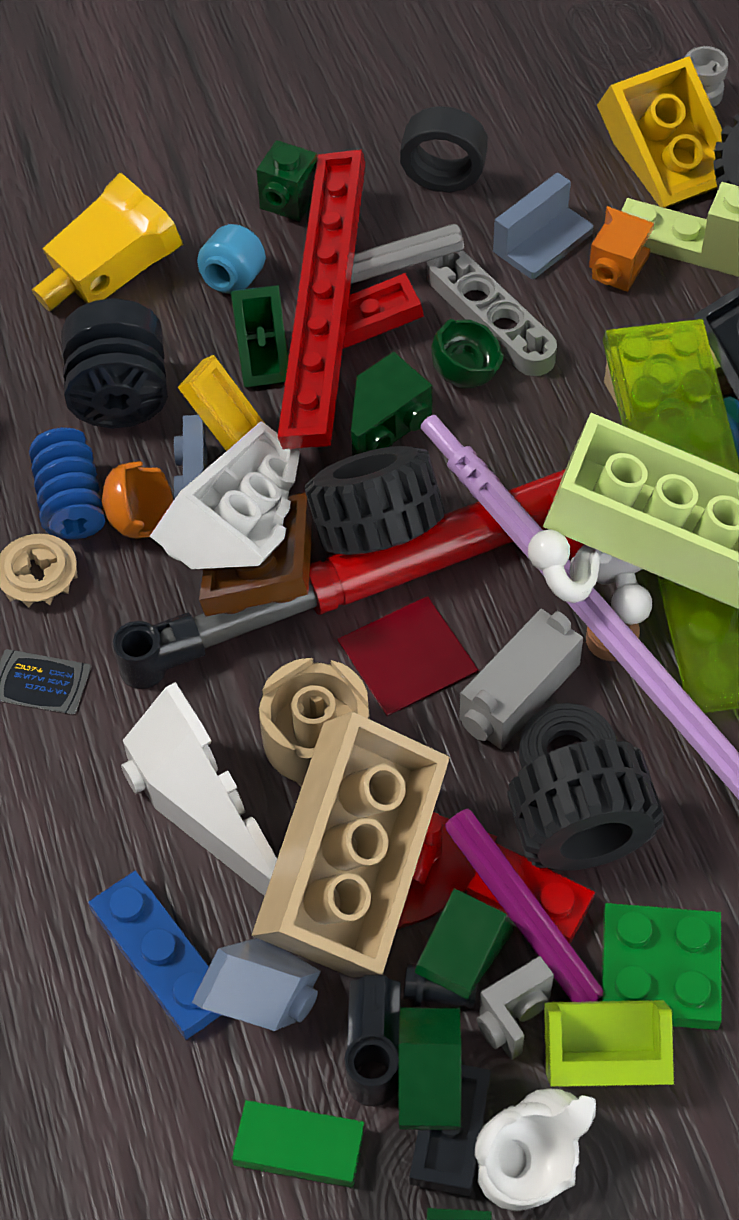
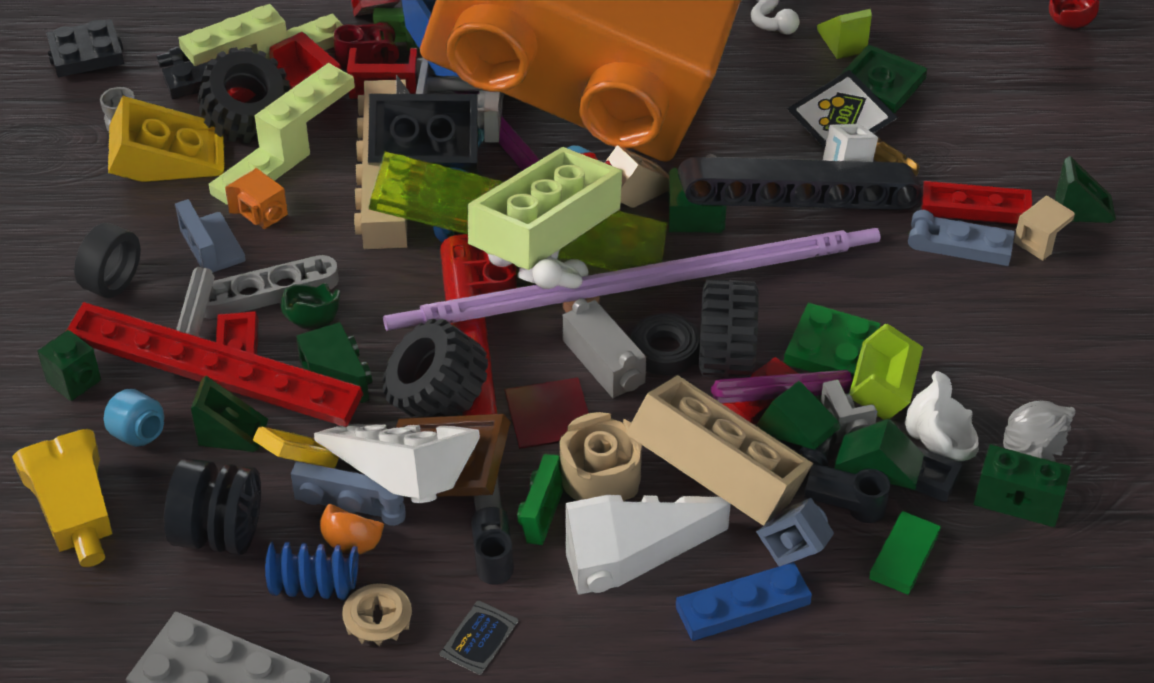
camera: 75 degrees left, 10 degrees down
(231, 678) = (542, 501): none -> green plate

